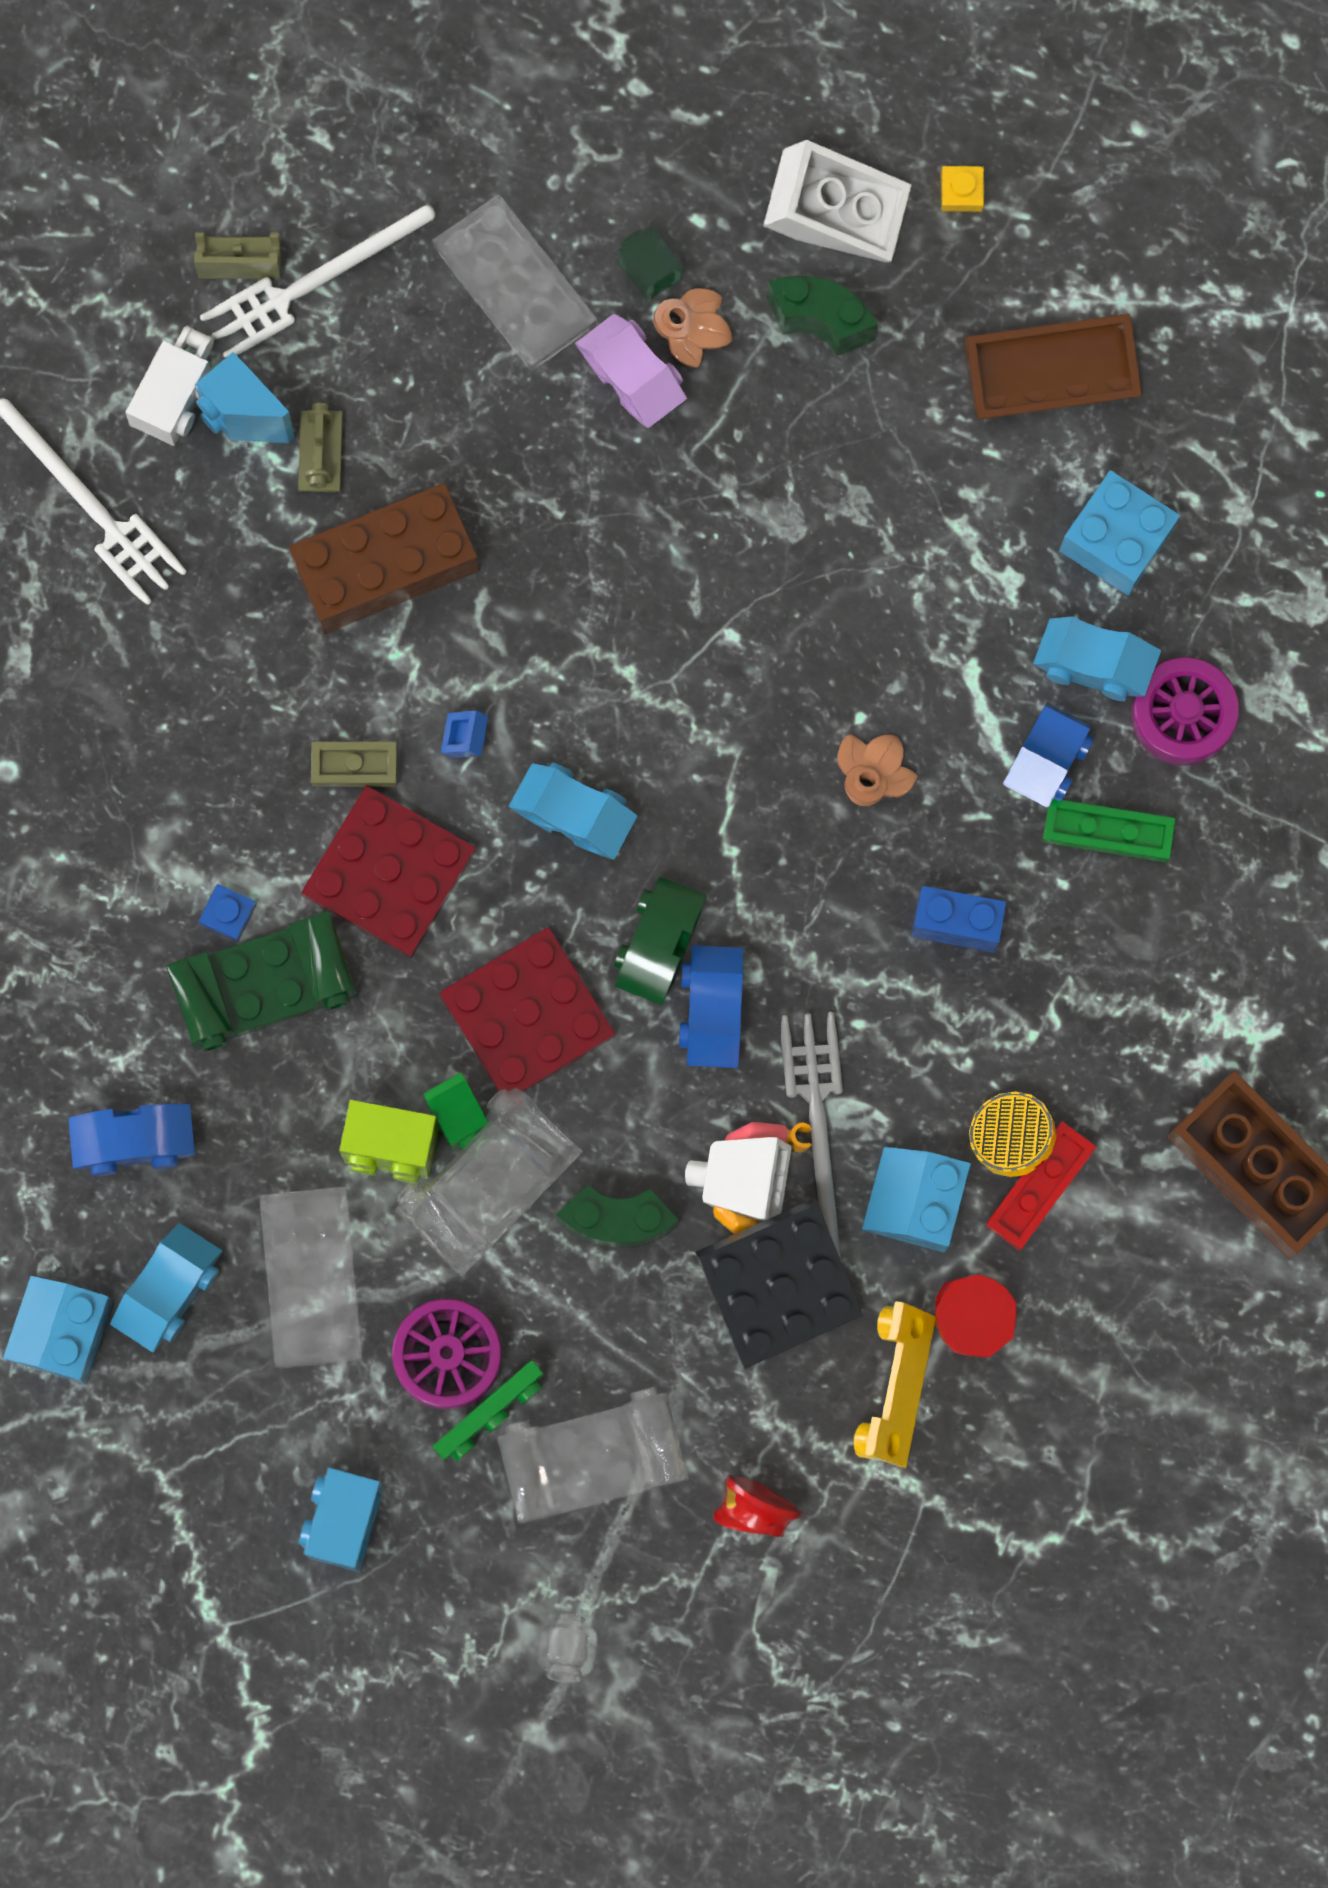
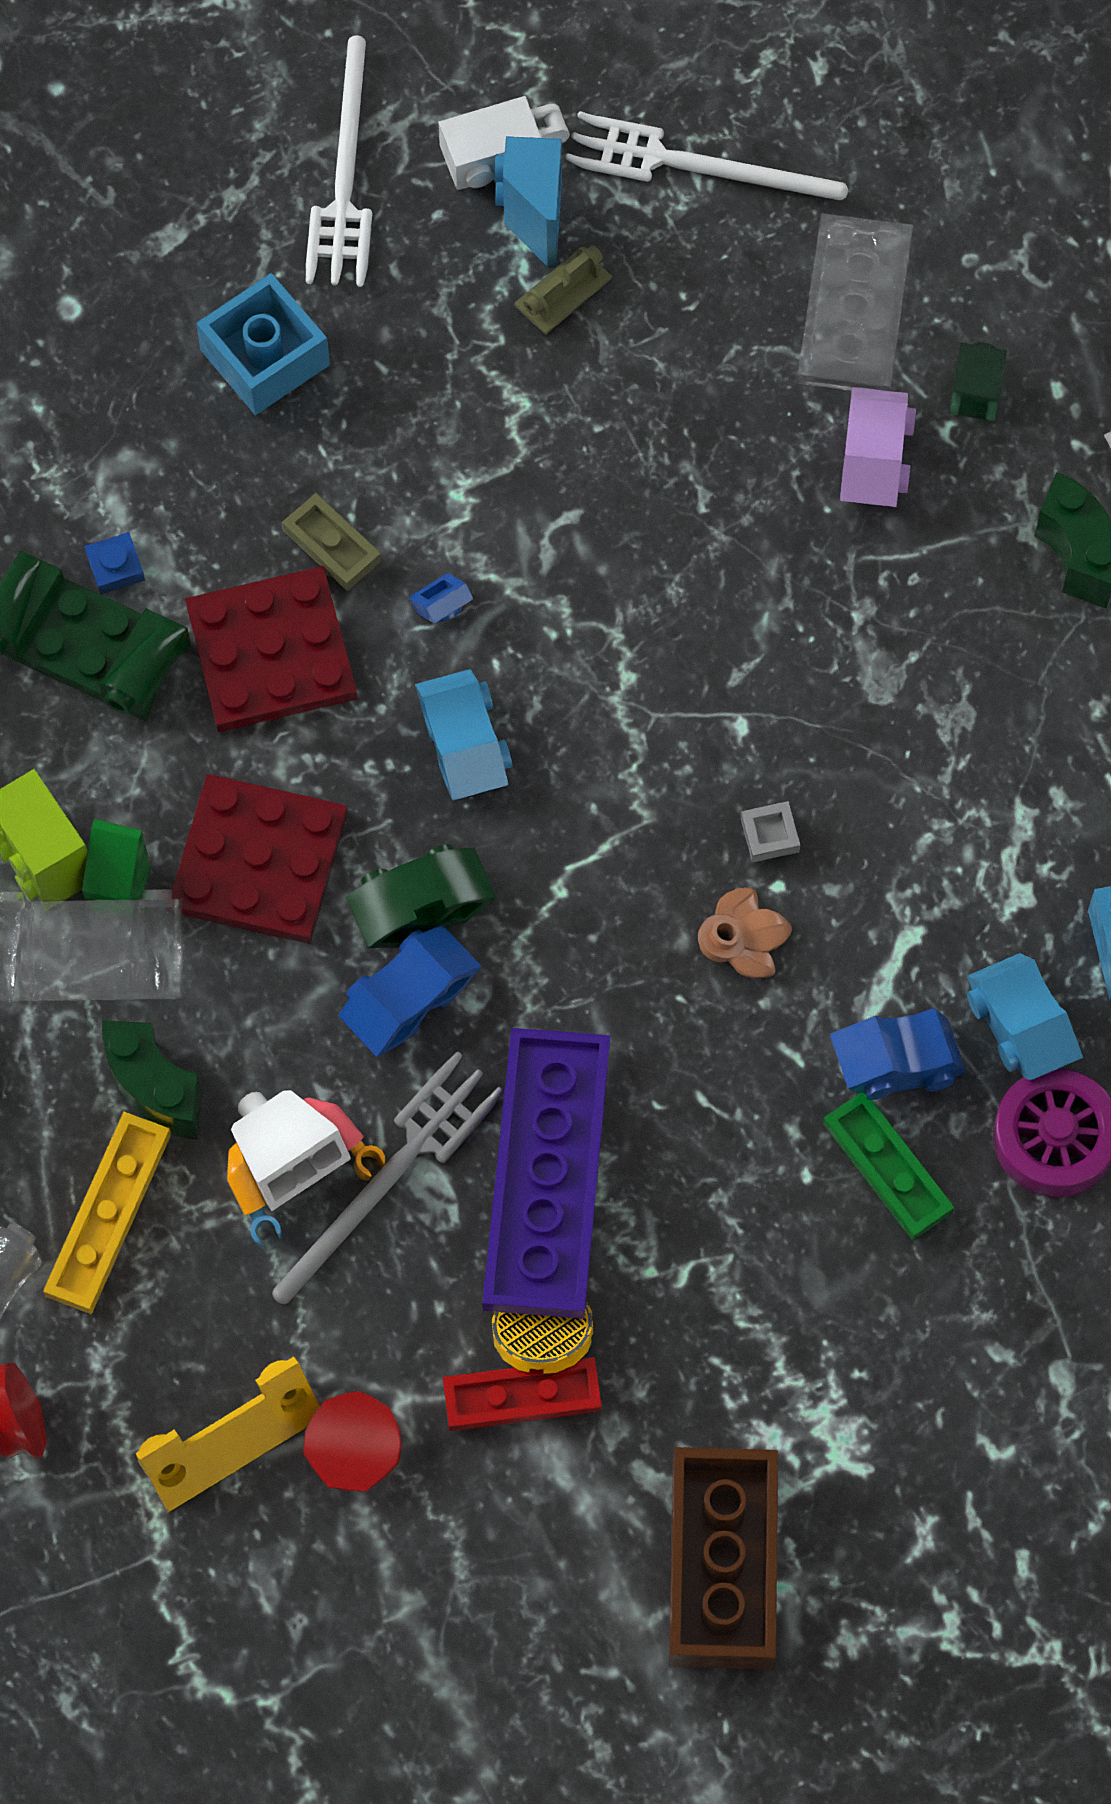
camera: 50 degrees right, 10 degrees down
(172, 674) = (263, 343): none -> dark azure brick
(238, 257) = (655, 93): olive hinge -> none
(384, 558) = (522, 409): reddish brown brick -> none
(677, 1327) = (107, 1213): none -> yellow plate
(698, 328) = (964, 467): nougat plate -> none
(779, 1283) = (220, 1253): black plate -> none
(824, 688) = (770, 831): none -> light grey plate
(916, 1197) = (411, 1304): dark azure slope -> none
(918, 1036) = (547, 1173): none -> dark purple plate
(958, 919) = (682, 1113): blue brick -> none

